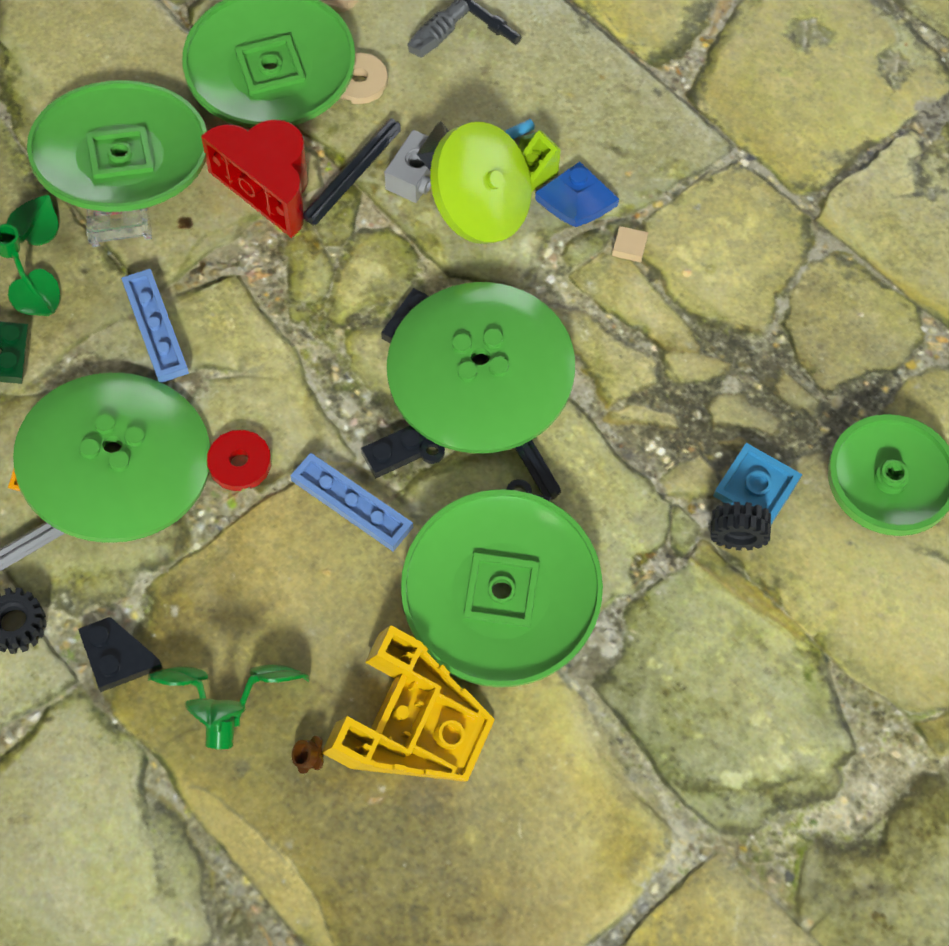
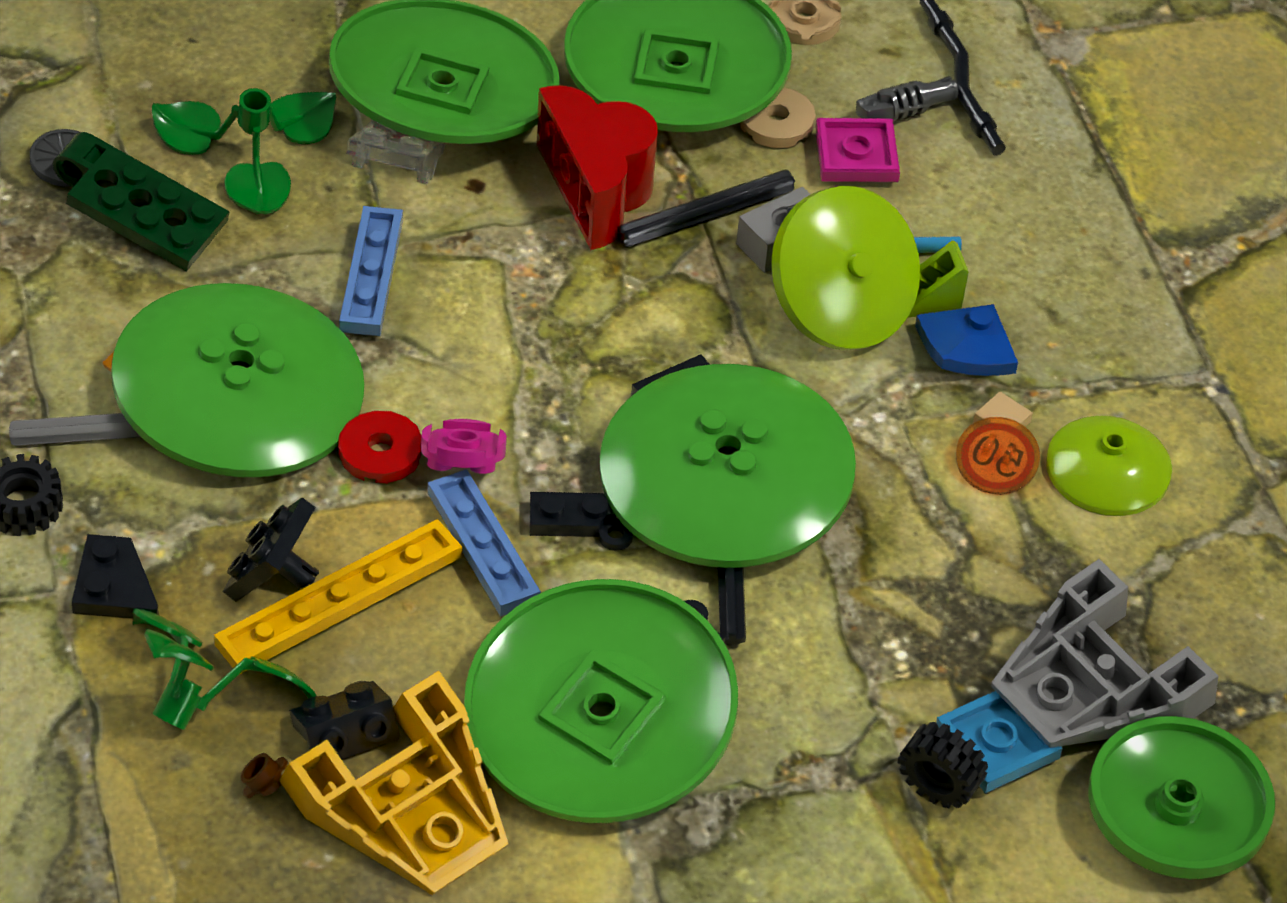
camera: 25 degrees right, 15 degrees down
(218, 583) = (272, 552): none -> black plate
(278, 592) = (339, 595): none -> yellow plate
(312, 439) = (463, 445): none -> dark pink plate
(338, 684) = (350, 720): none -> black bracket
(427, 81) = (857, 150): none -> dark pink plate
(643, 274) = (997, 455): none -> clear orange piece
(710, 259) = (1108, 465): none -> lime dish
(786, 421) = (1080, 684): none -> light grey wedge

